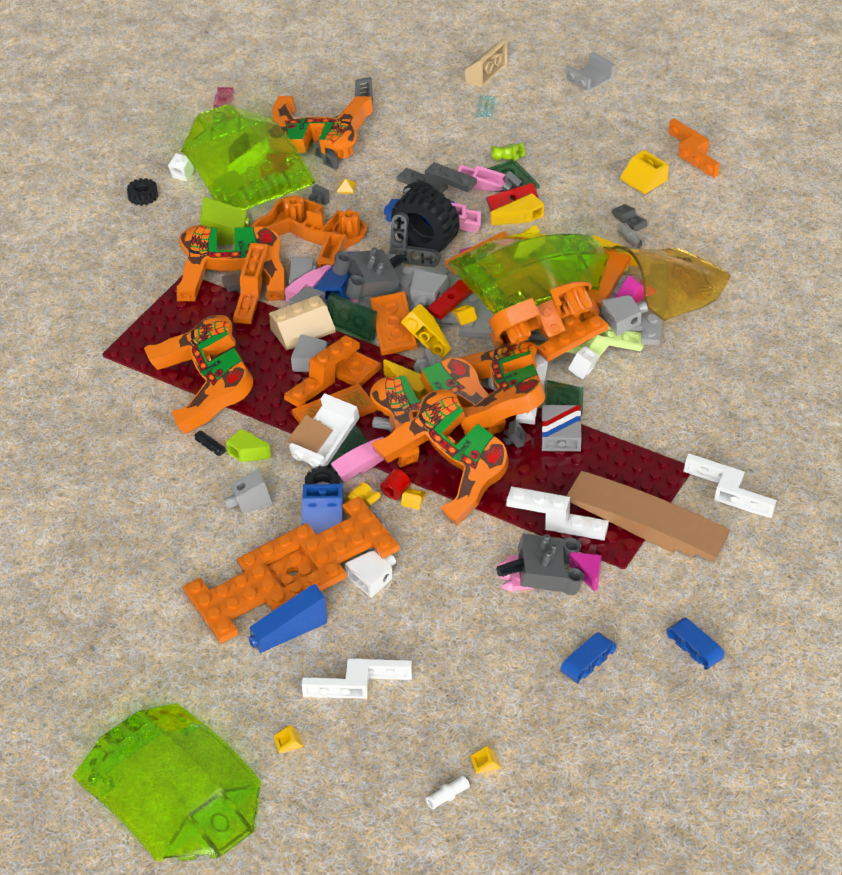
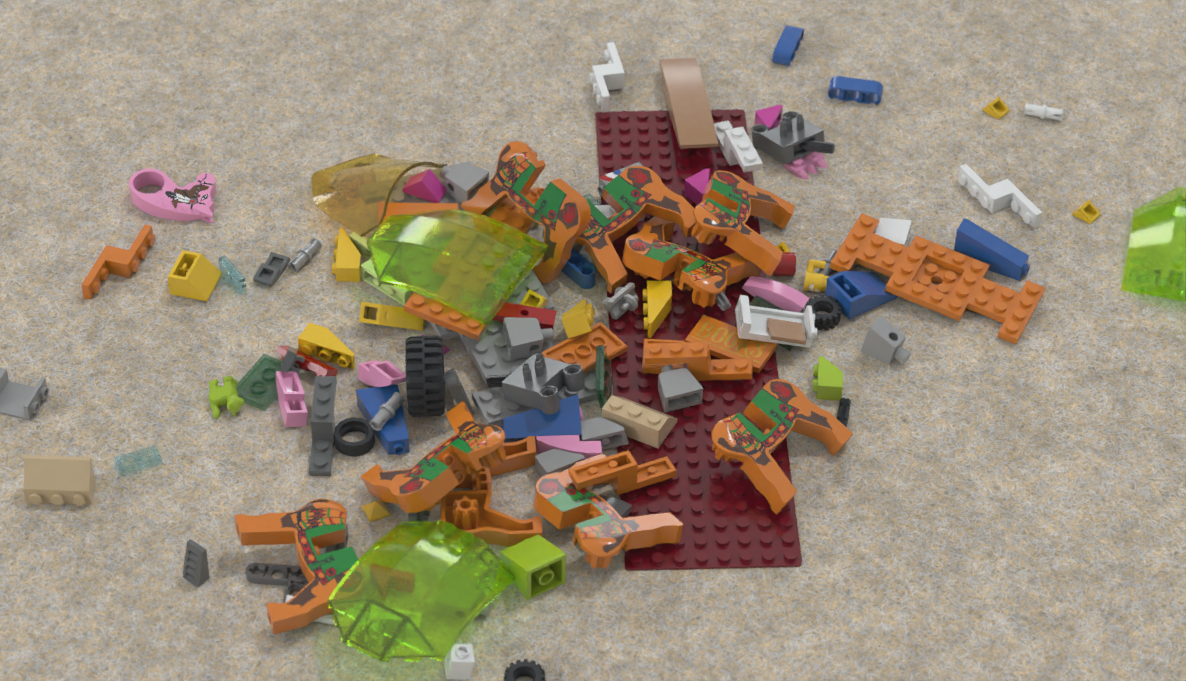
camera: 125 degrees left, 0 degrees up
(324, 188) = (441, 468): none -> orange animal
(524, 470) = (695, 186): none -> dark pink slope
(637, 194) = (232, 274): none -> clear light blue tile
(745, 192) = (173, 202): none -> bright pink animal

